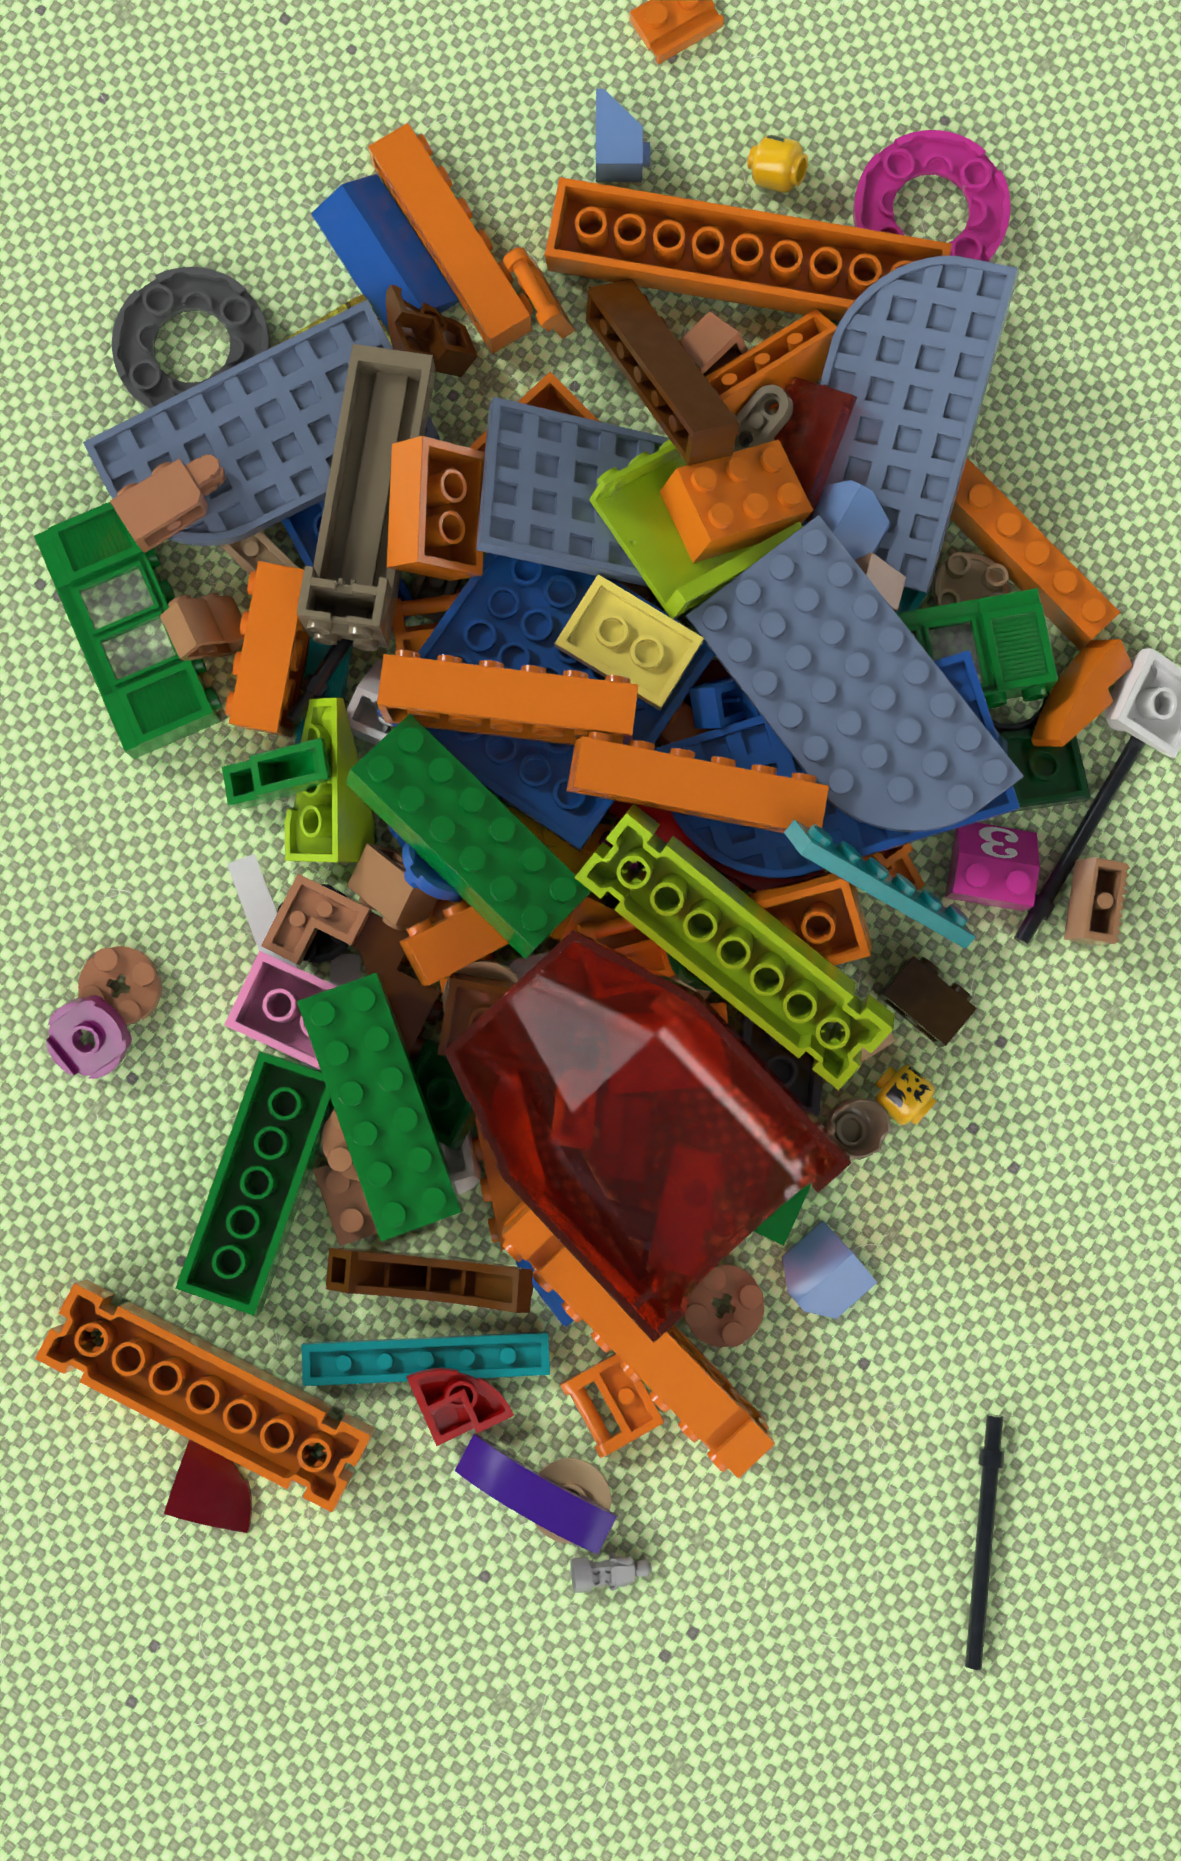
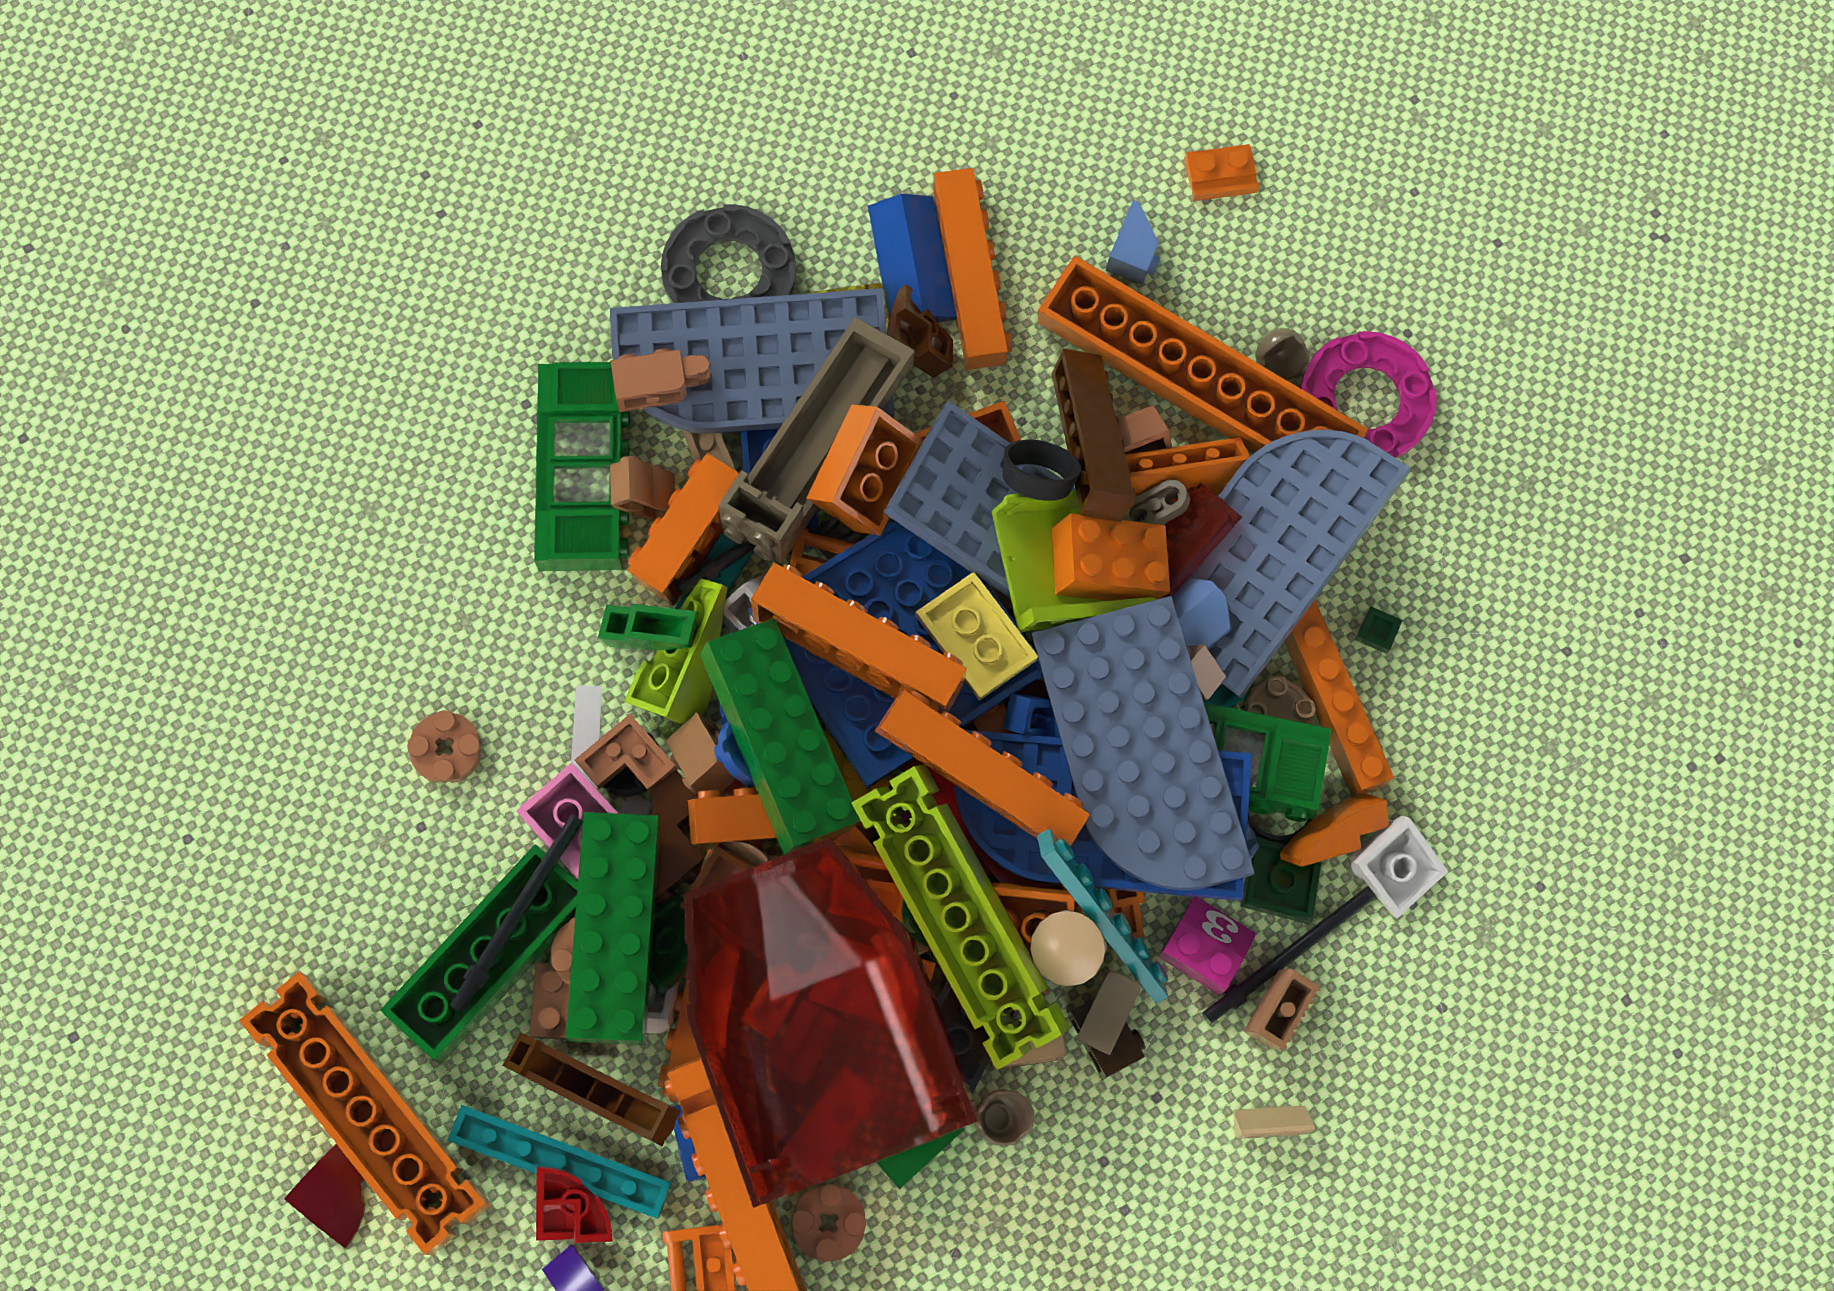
camera: 15 degrees right, 10 degrees down
(103, 1022) = (420, 777): plate -> none
(259, 1213) = (477, 975): none -> black bar
(537, 289) = (1023, 337): orange plate -> none
(623, 414) = (1045, 455): none -> black tyre
(777, 163) = (1256, 313): yellow head -> none
(823, 195) = (1283, 353): none -> dark tan hair
(824, 1273) = (926, 1232): medium blue slope -> none
(861, 935) = (1068, 948): none -> tan dish
(905, 1094) = (1056, 1106): yellow head -> none
(923, 978) = (1109, 1012): none -> dark tan slope
(1040, 459) = (1378, 630): none -> dark green plate
(1129, 1019) = (1272, 1122): none -> tan slope

